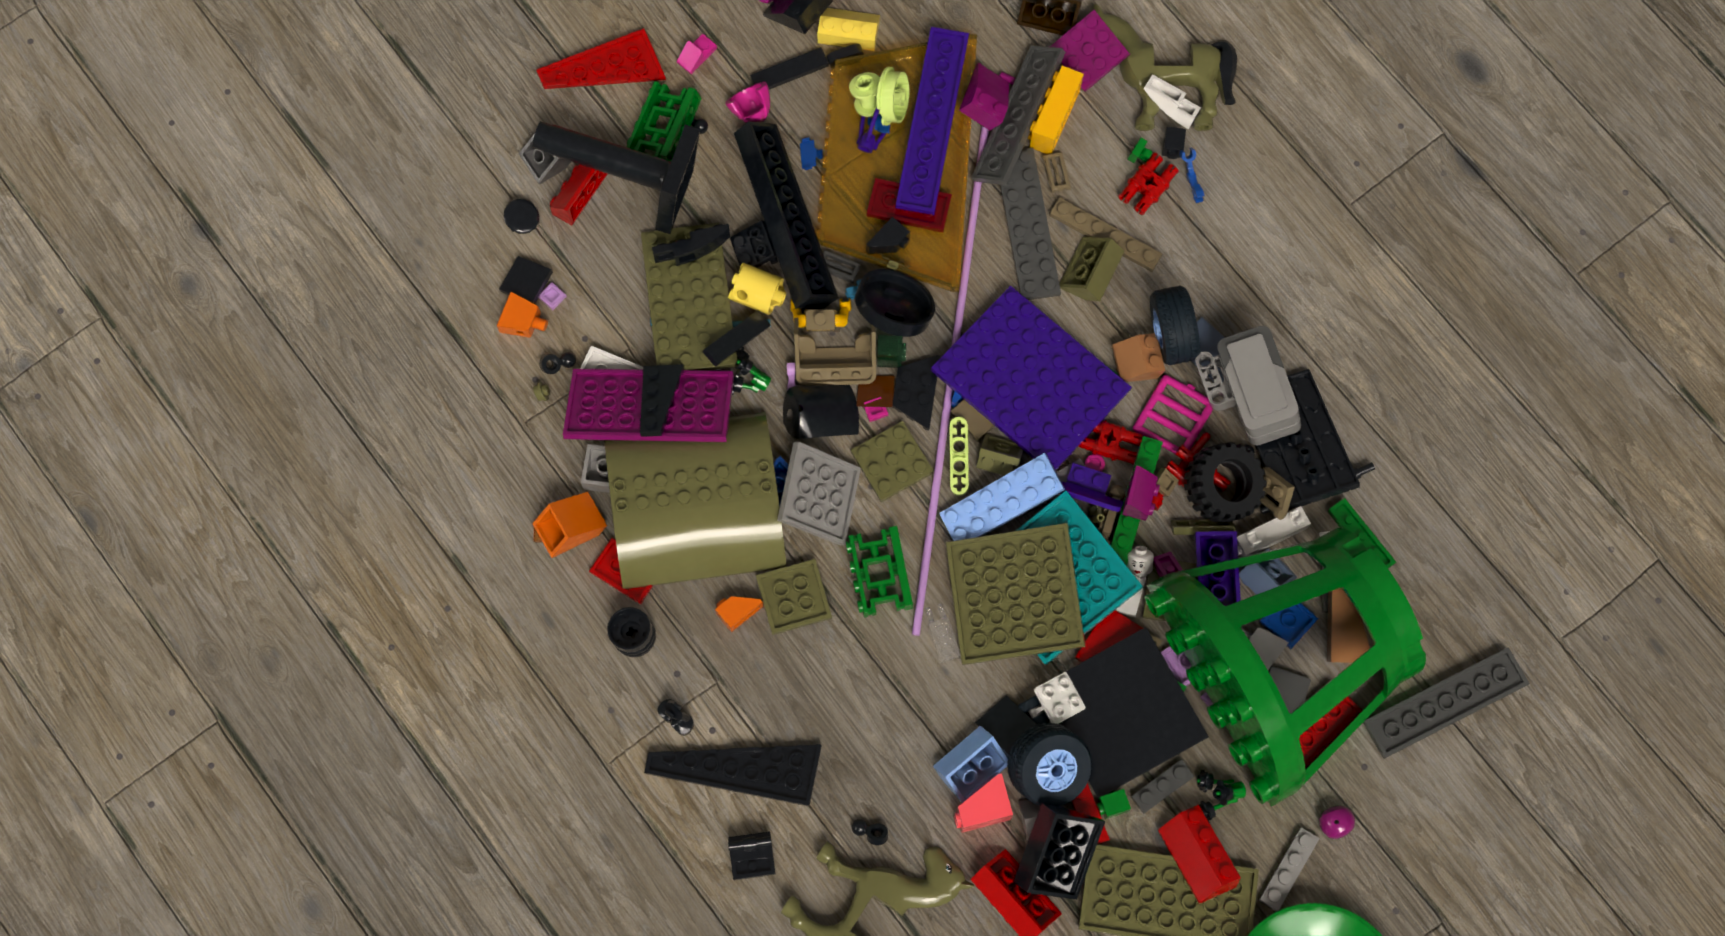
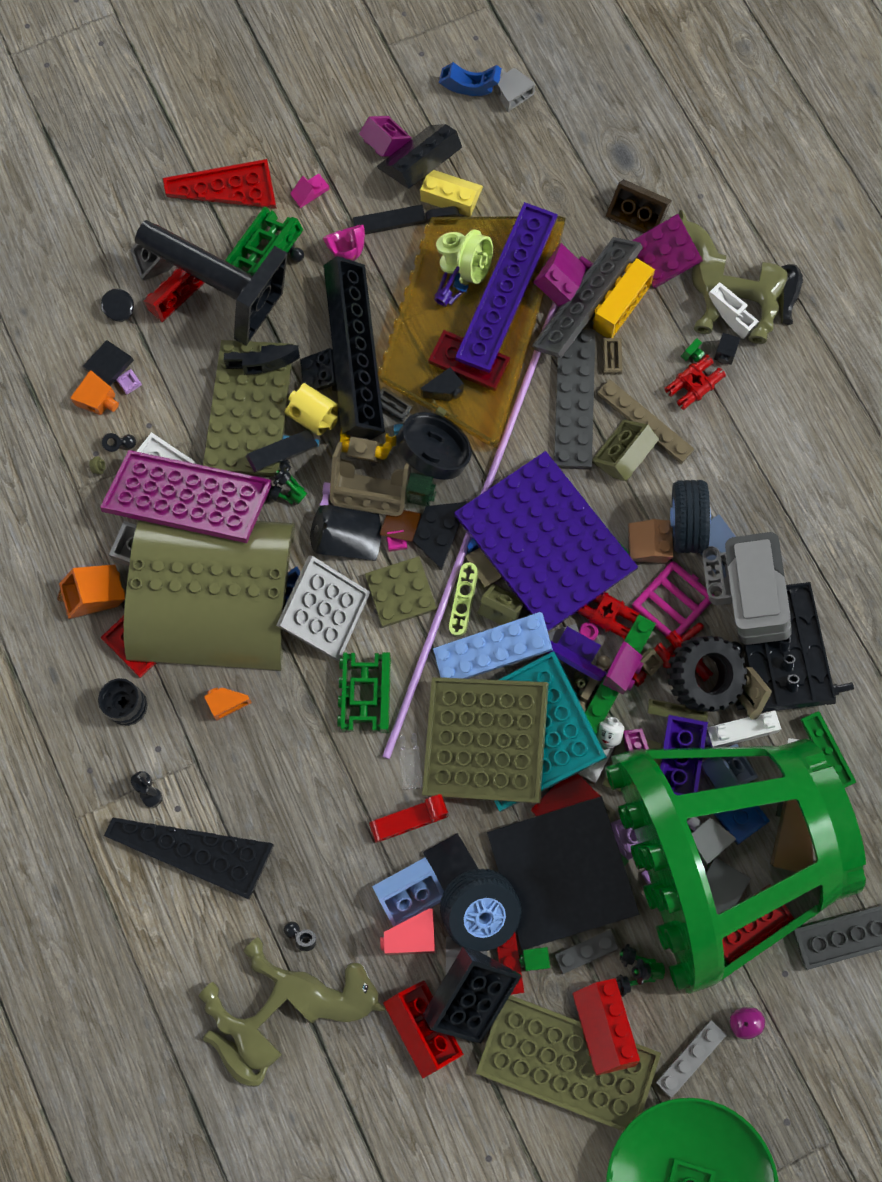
camera: 15 degrees right, 0 degrees up
(657, 396) = (194, 489): black wing -> none
(751, 855) = (184, 935): black plate -> none
(793, 596) = (280, 699): olive plate -> none
(809, 153) = (390, 297): blue piece -> none
(956, 690) = (409, 819): none -> red beam
(1057, 699) = (502, 846): white plate -> none
(1197, 191) = (736, 382): blue piece -> none

